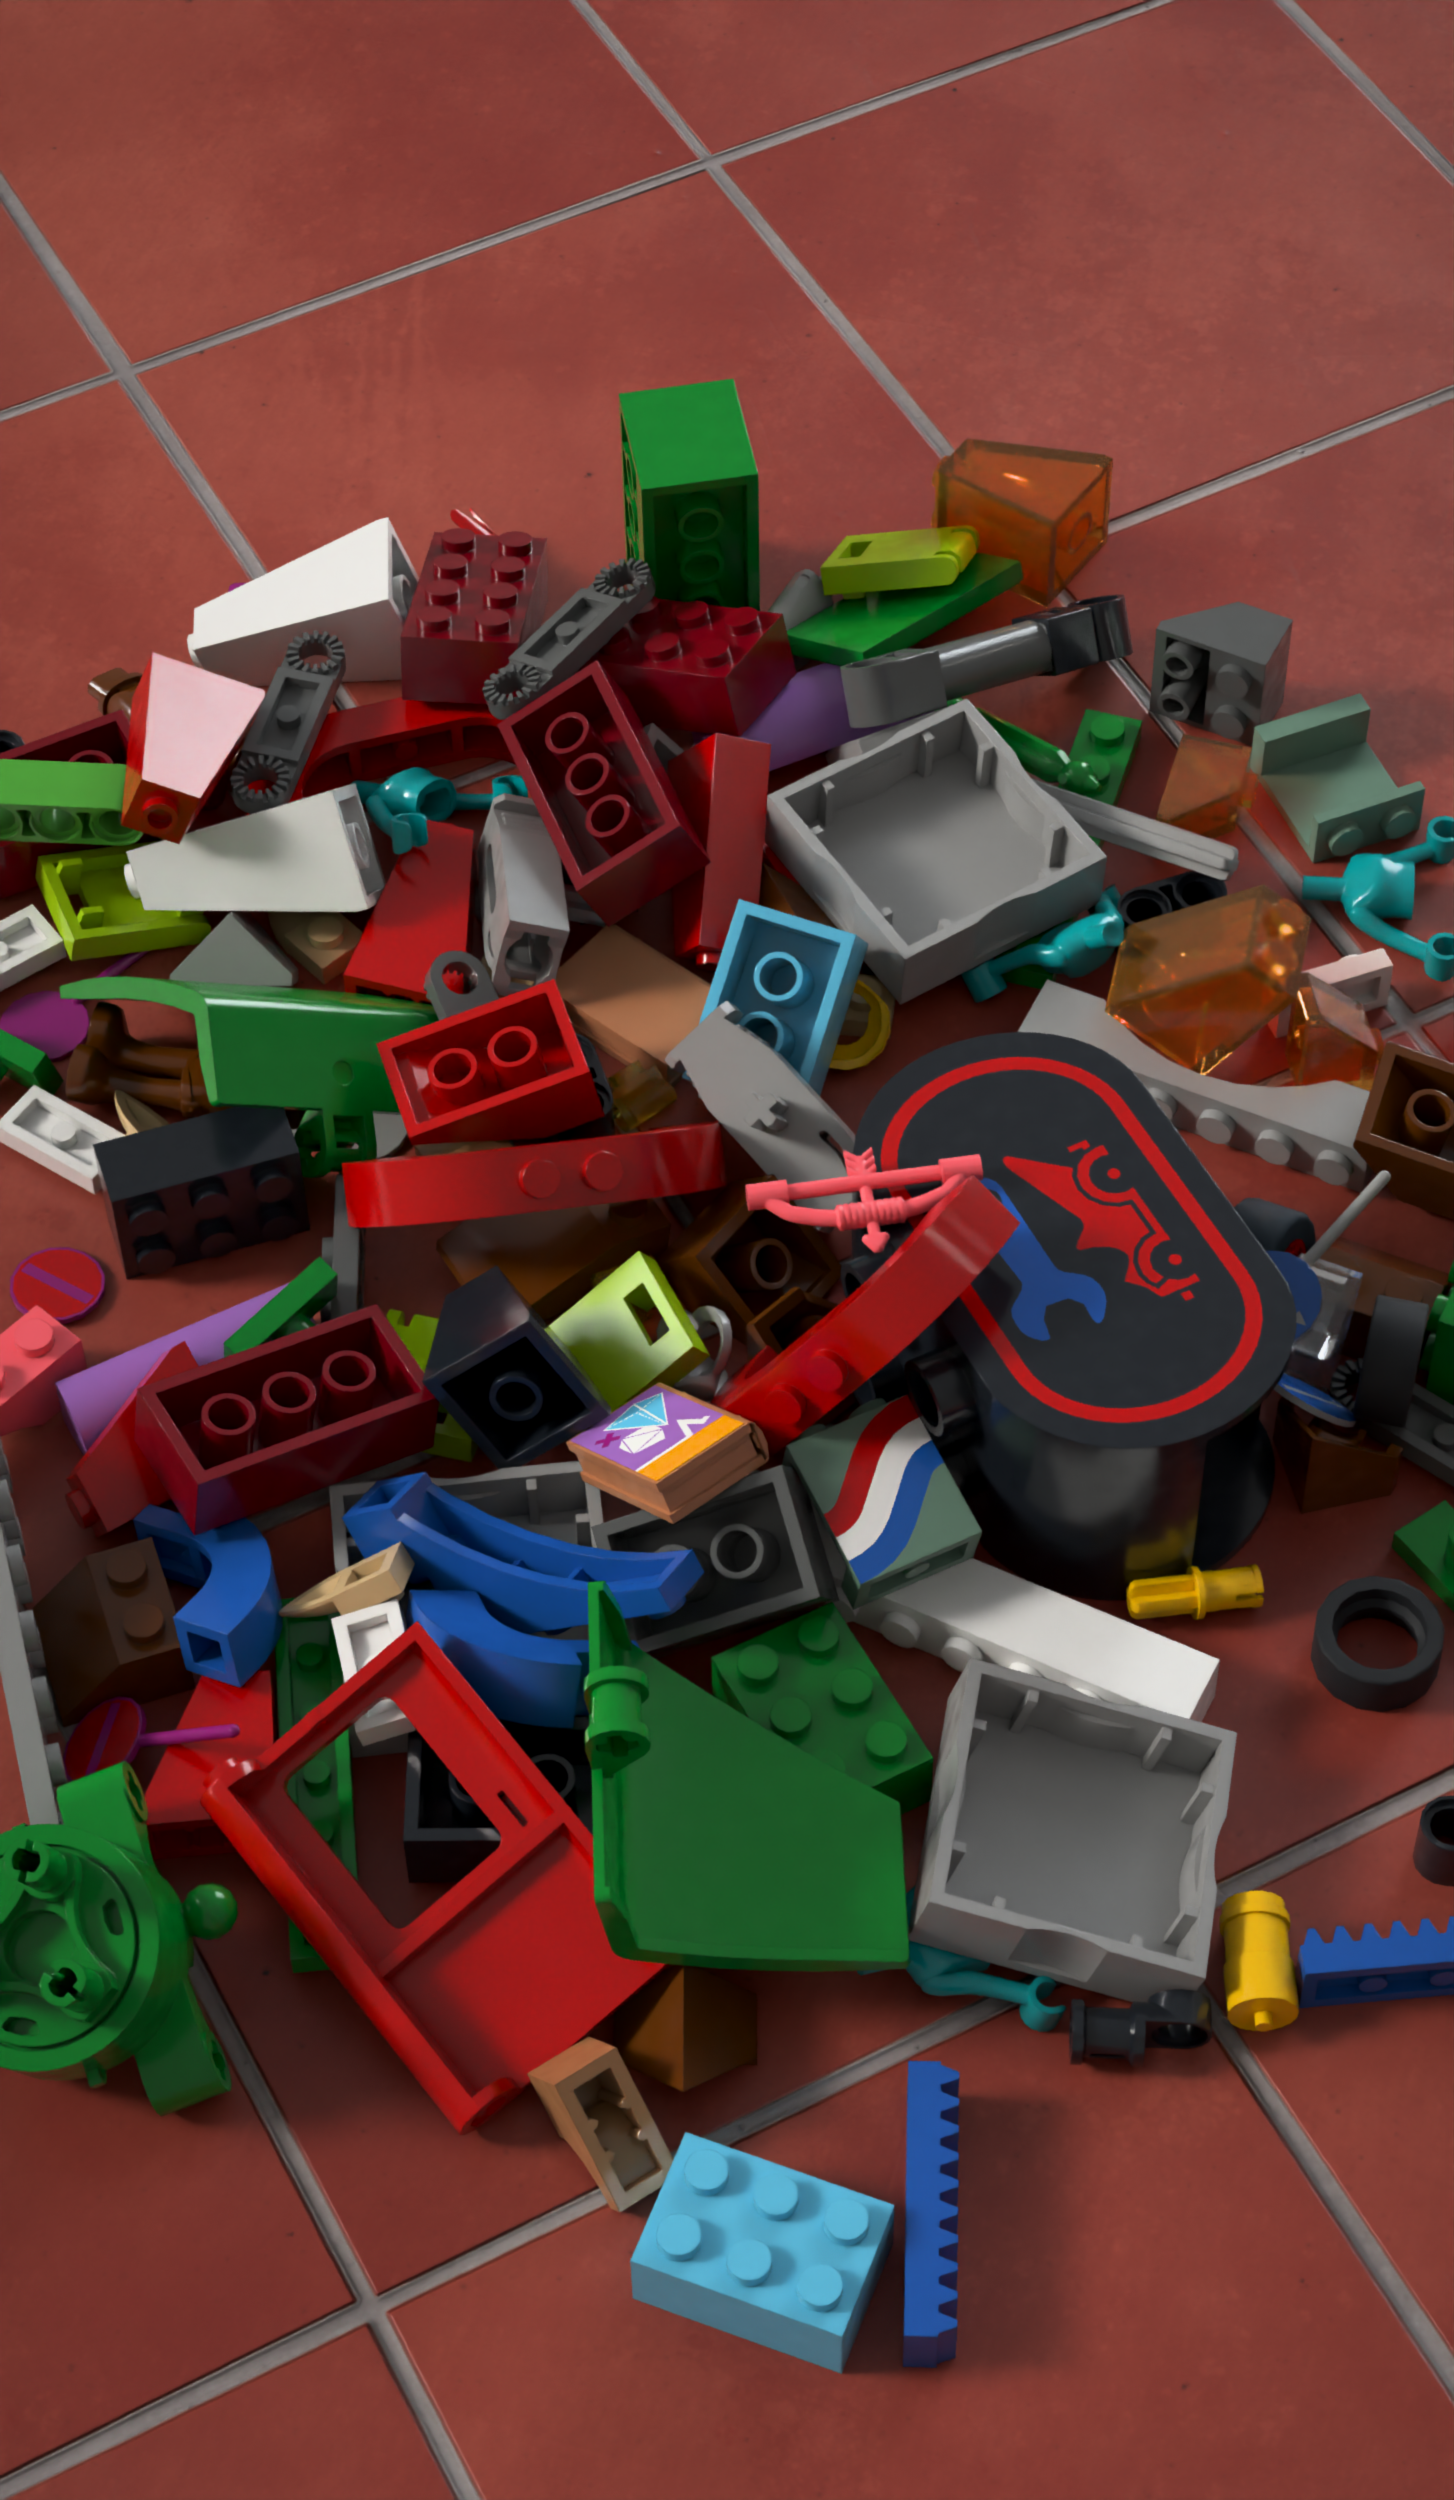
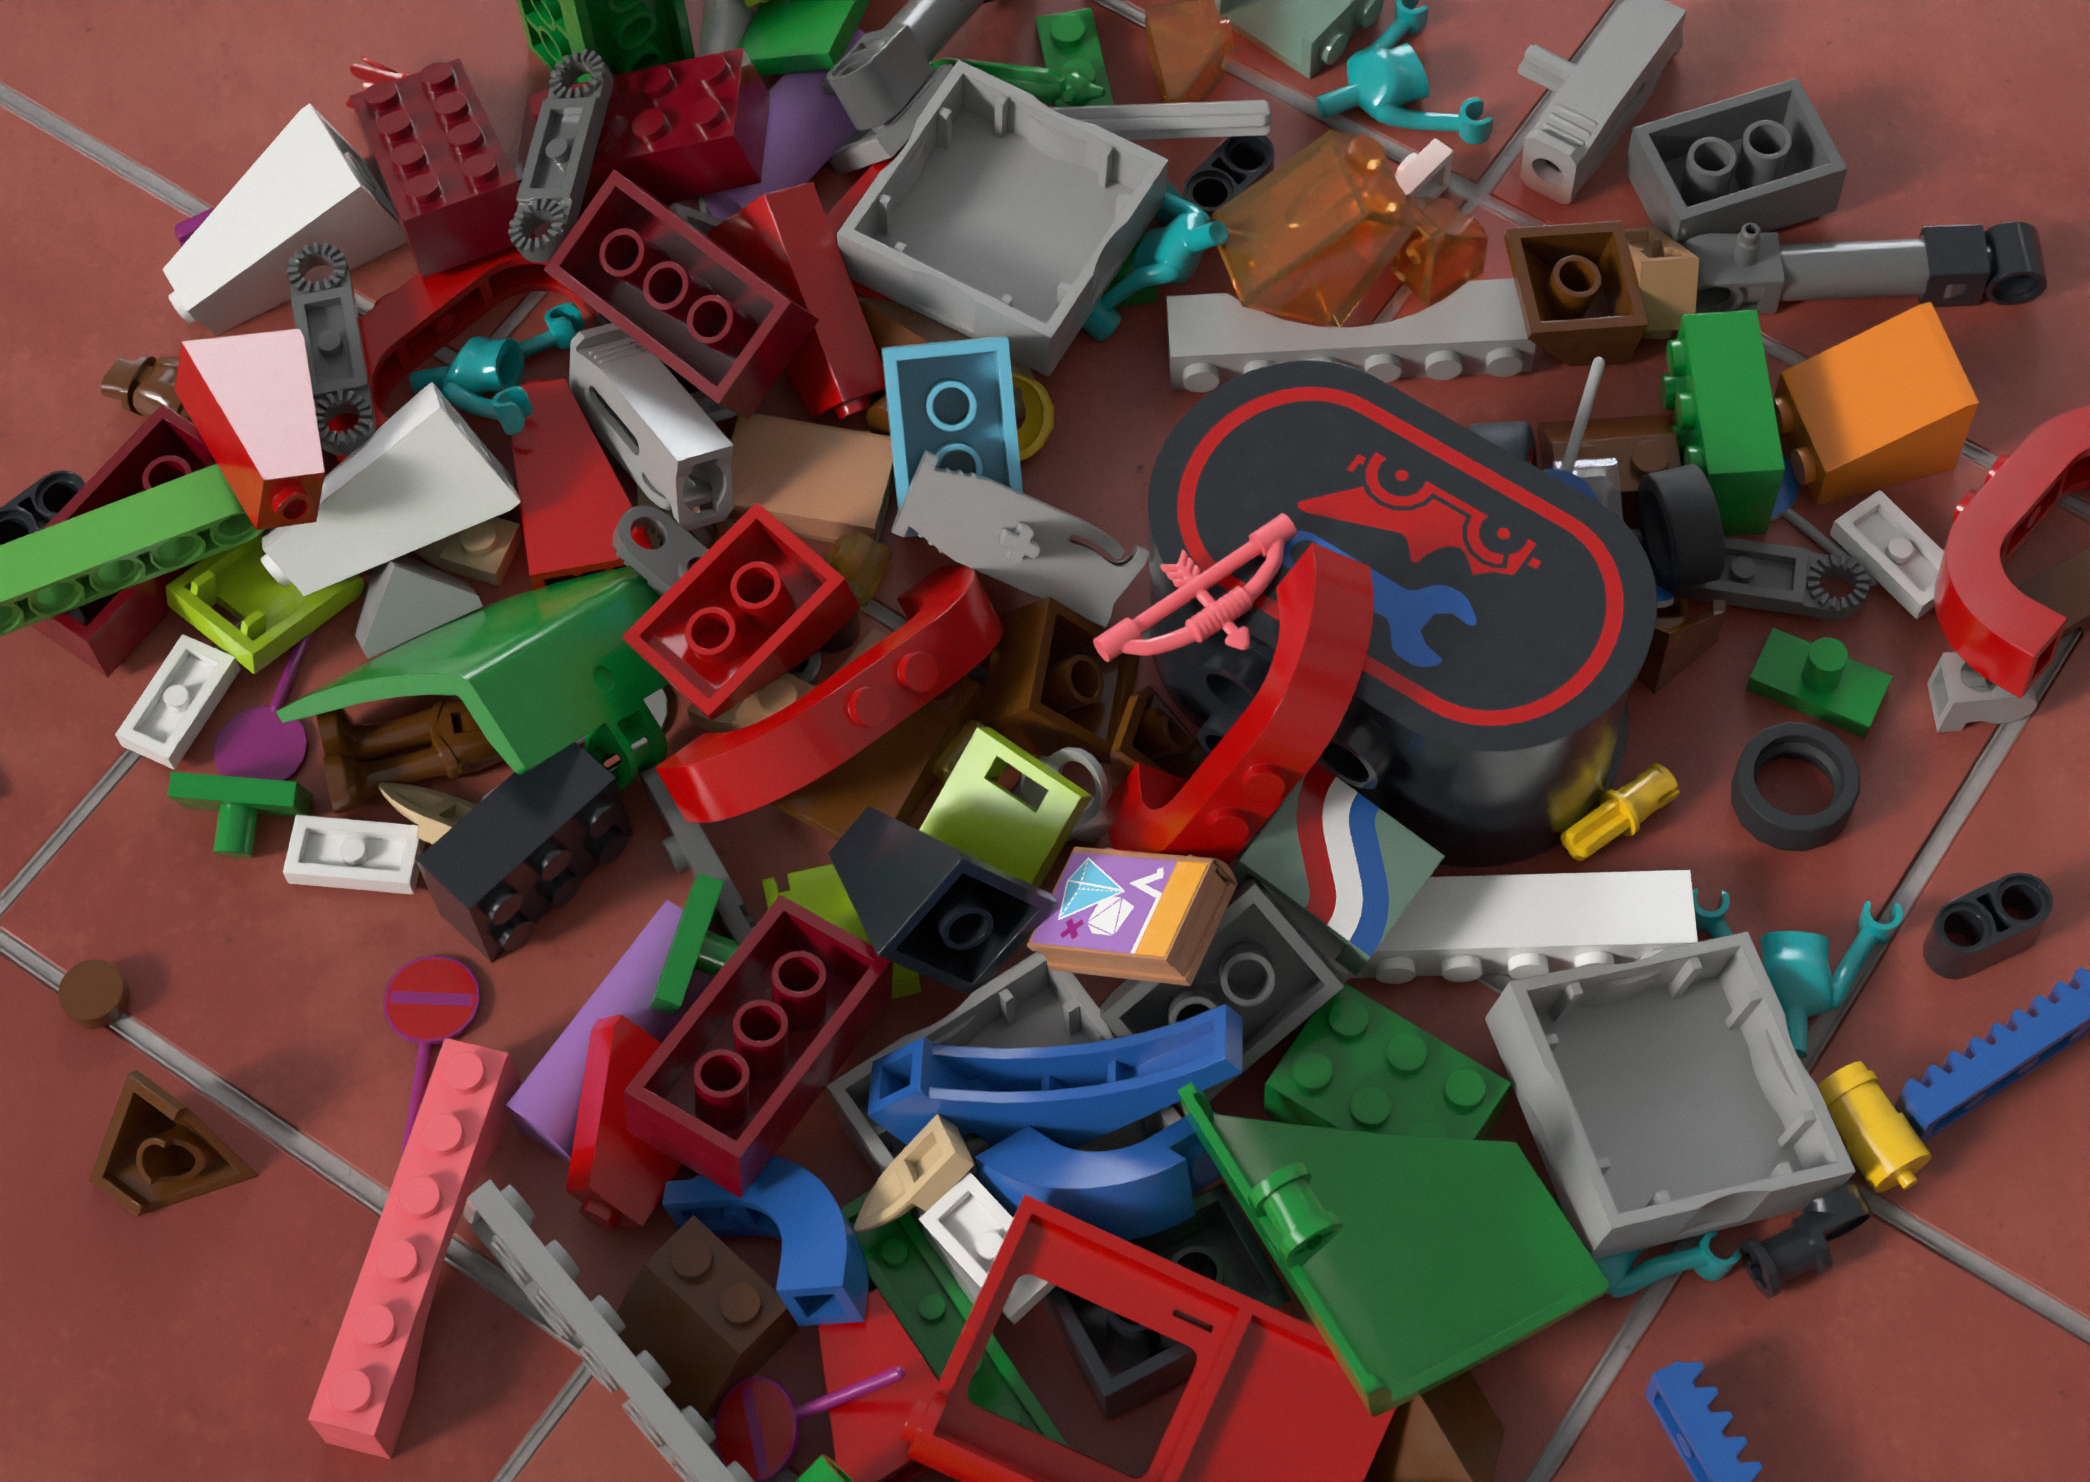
camera: 25 degrees left, 10 degrees up
(1276, 1795) = (1800, 966): none -> teal piece

